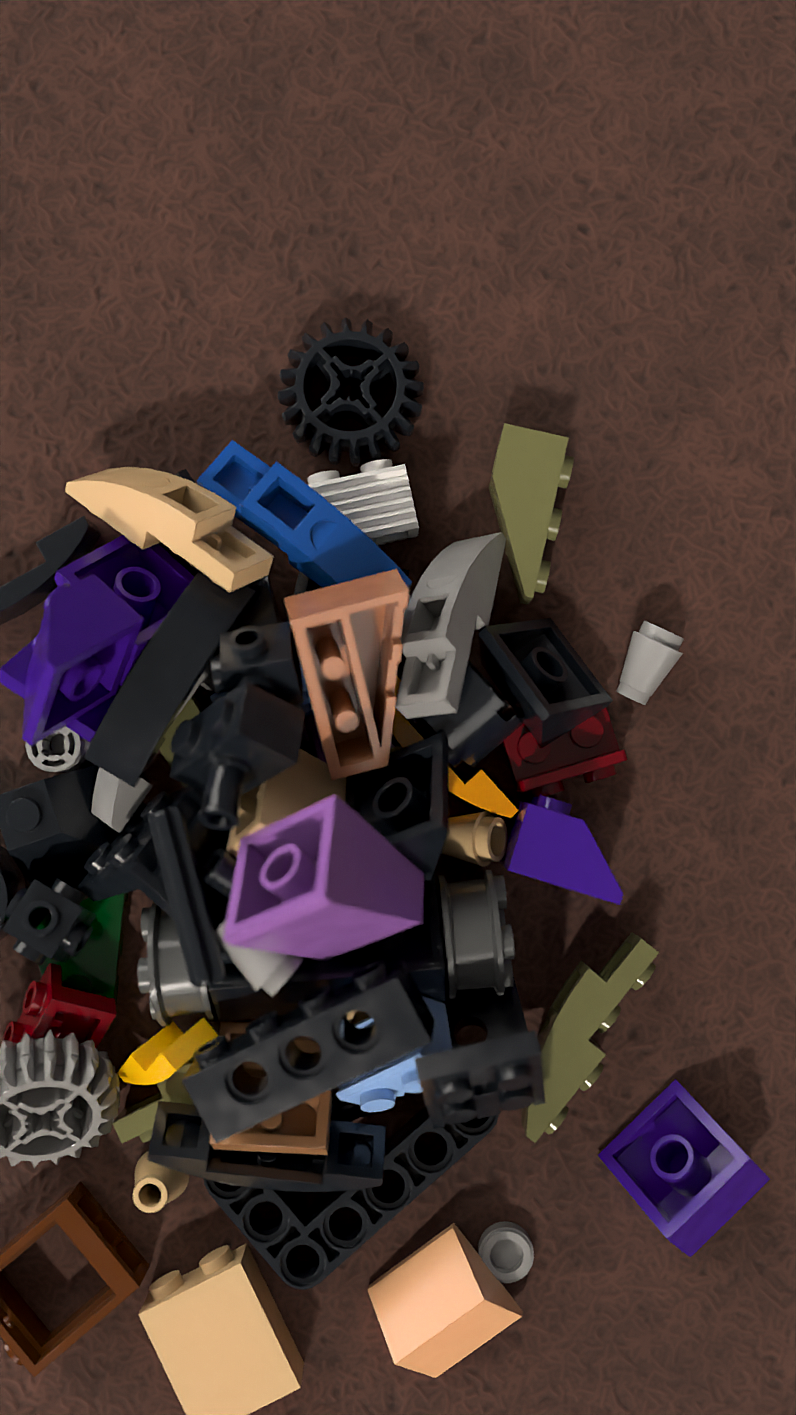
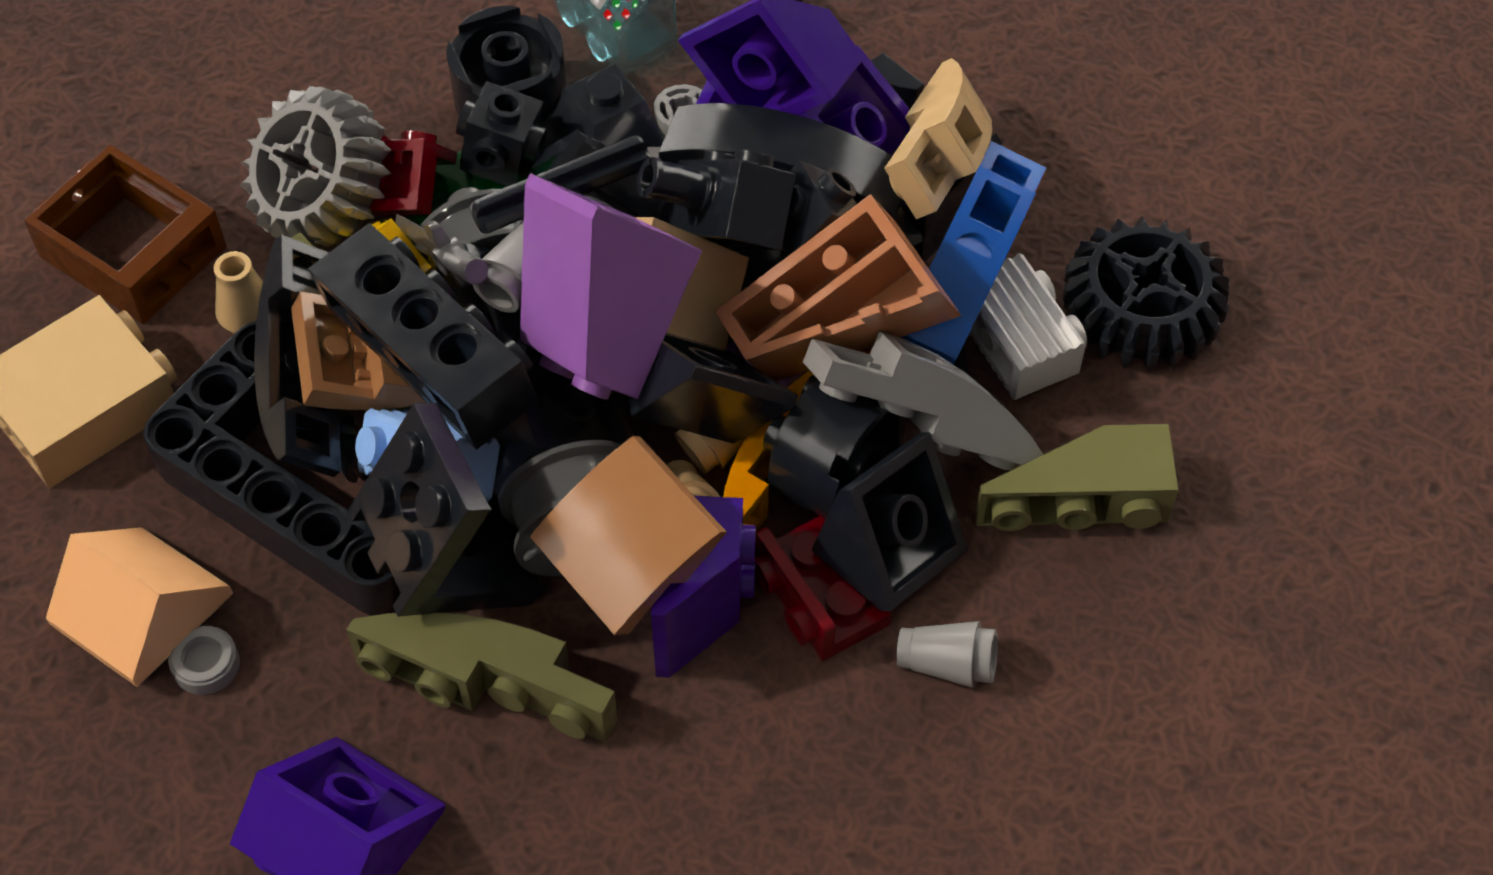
camera: 80 degrees right, 30 degrees down
(230, 1013) = (446, 253): none -> flat silver sword
(554, 910) = (627, 534): none -> medium nougat slope

